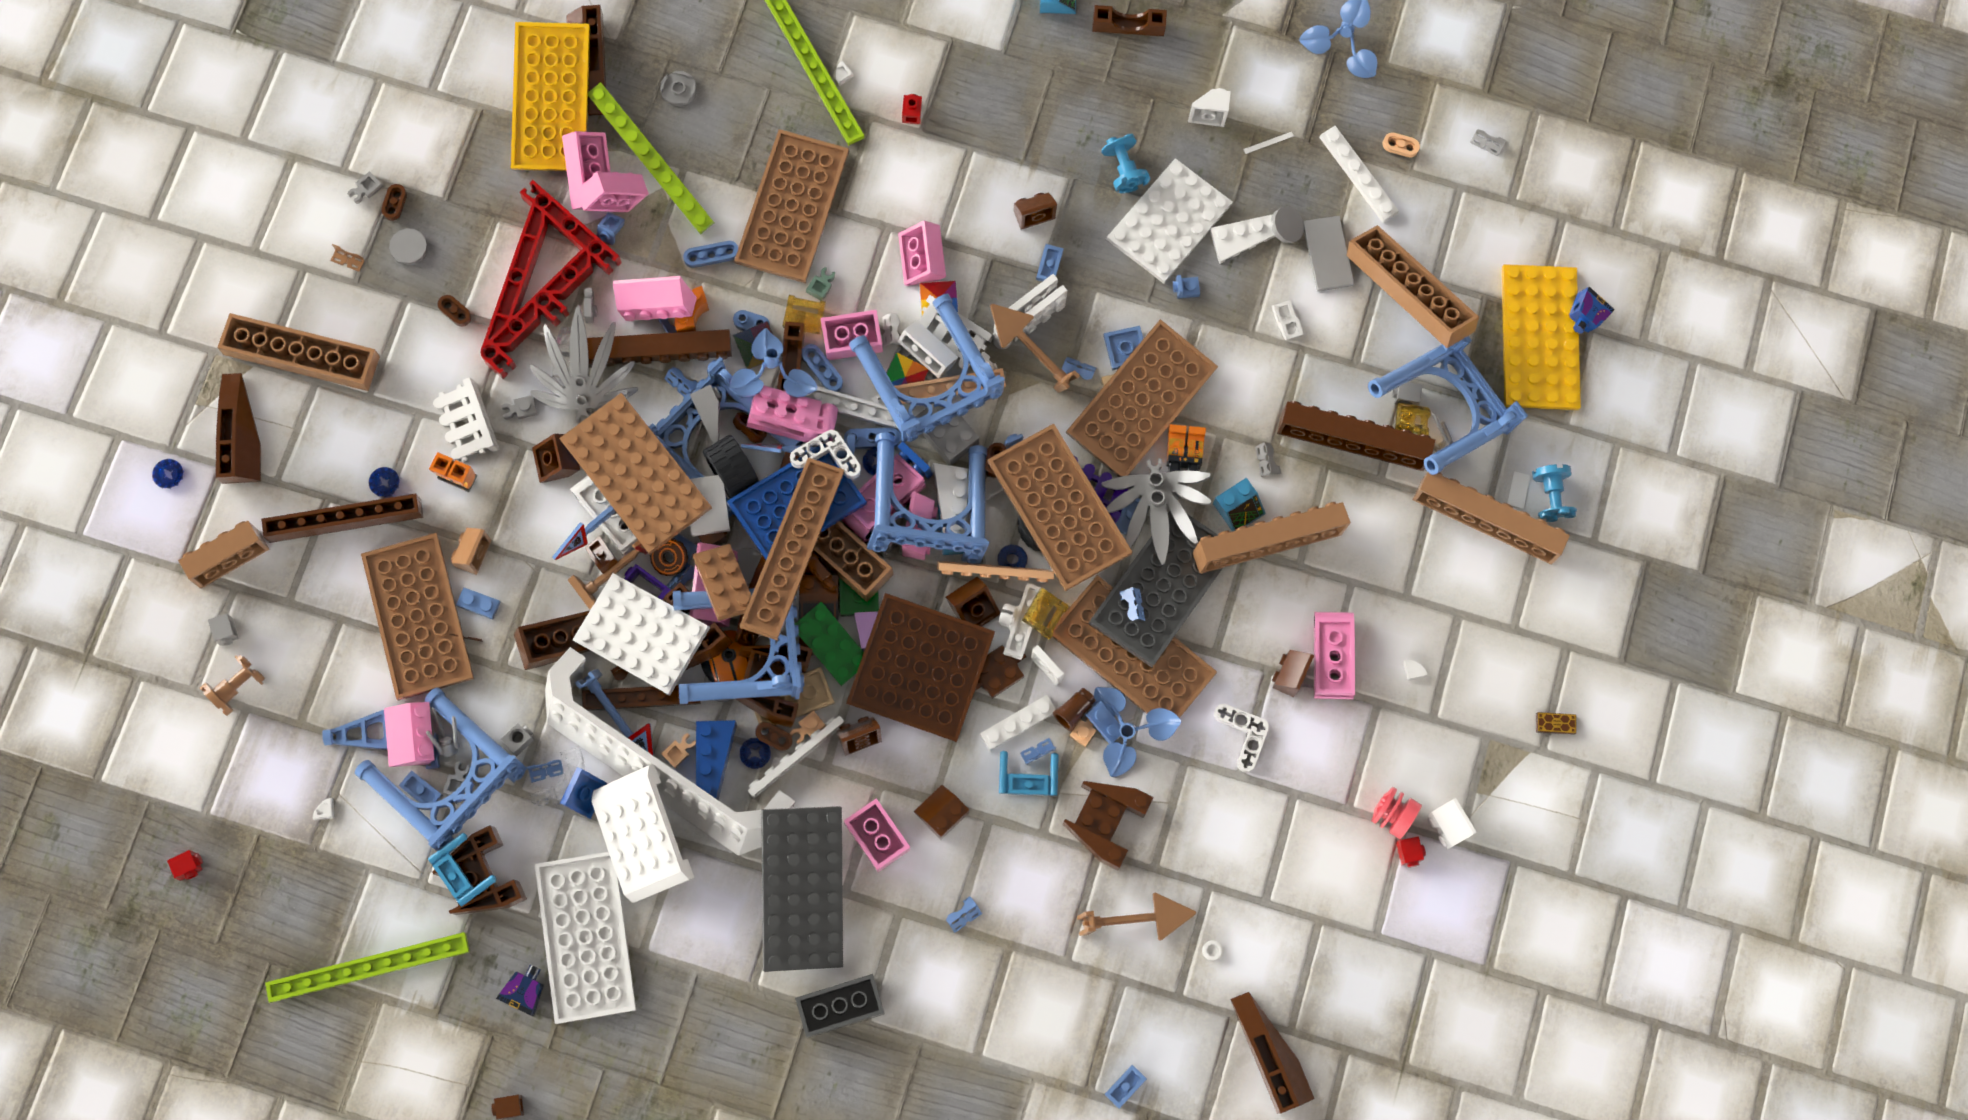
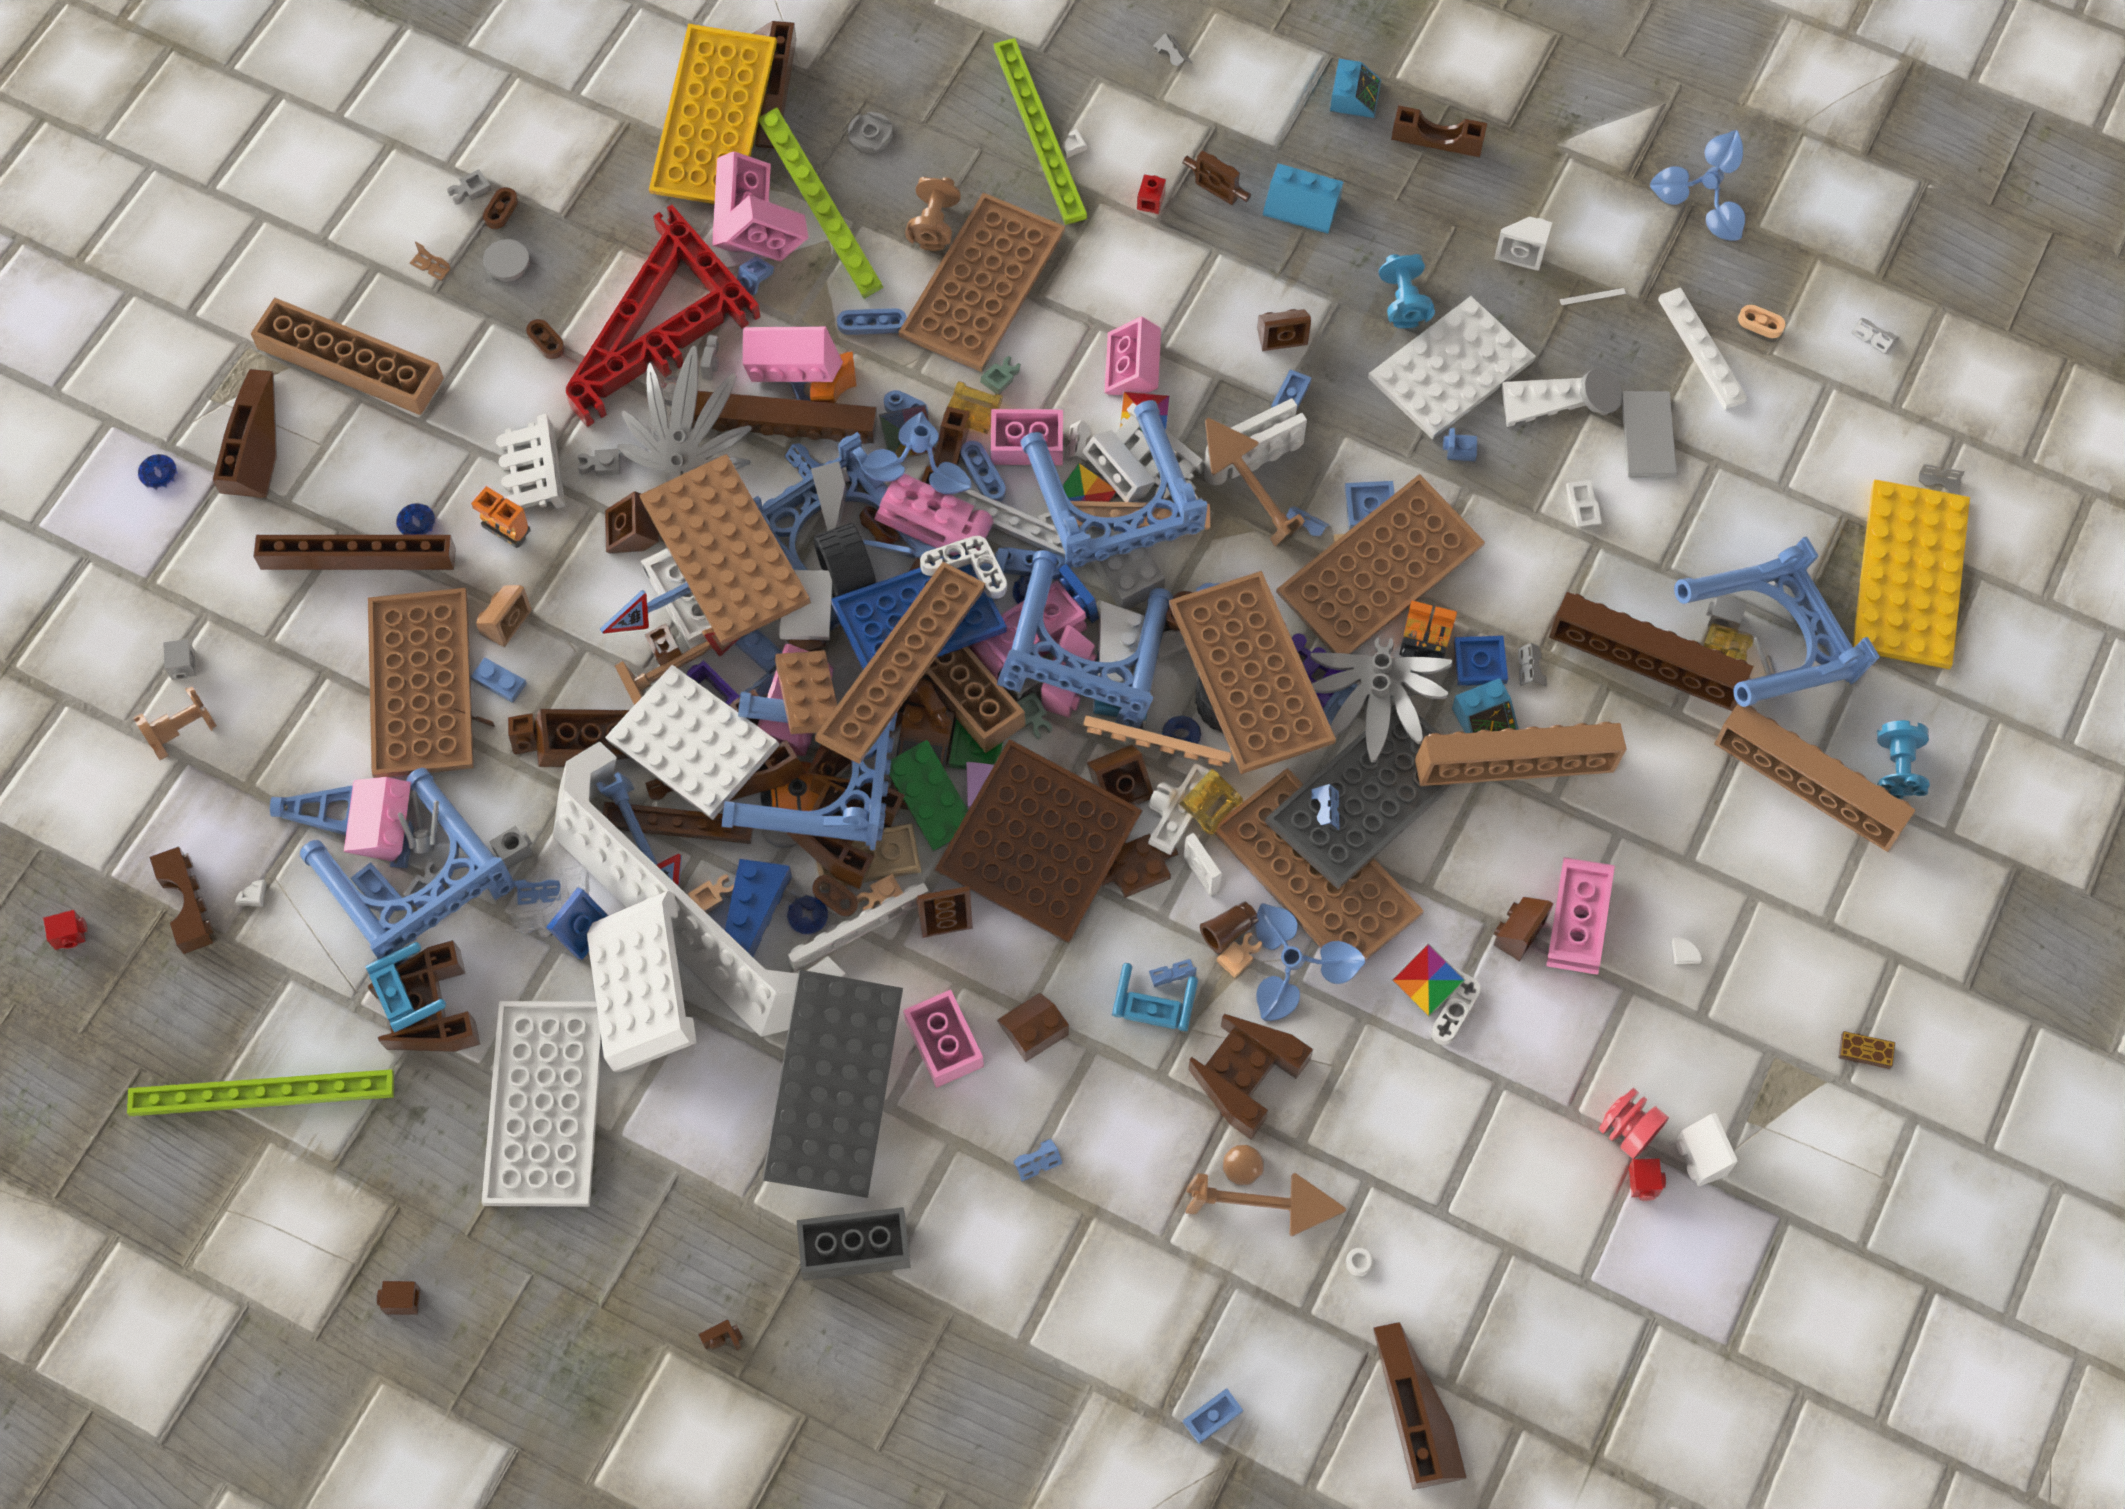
camera: 15 degrees right, 10 degrees down
(223, 554) = (201, 570): medium nougat brick -> none
(283, 845) = (190, 926): none -> reddish brown arch
(506, 644) = (522, 733): none -> reddish brown bracket
(523, 991) = (449, 1156): torso -> none
(679, 561) = (734, 656): reddish brown tile -> none
(742, 168) = (929, 227): none -> medium nougat piece
(752, 1092) = (716, 1335): none -> reddish brown bracket
(896, 561) = (1033, 714): none -> sand green plate
(961, 88) = (1217, 177): none -> reddish brown plate
(1018, 723) = (1152, 933): white plate -> none
(1031, 95) = (1303, 198): none -> dark azure slope
(1104, 722) = (1264, 949): medium blue plate -> none
(1115, 892) = (1243, 1164): none -> medium nougat hair
(1228, 462) = (1480, 660): none -> blue plate
(1229, 726) = (1428, 980): none -> tile
(1412, 286) = (1751, 481): medium nougat brick -> none
(1519, 489) = (1858, 751): white sticker -> none
(1543, 255) = (1950, 484): none -> light grey piece
(1589, 310) = (1979, 548): blue torso -> none

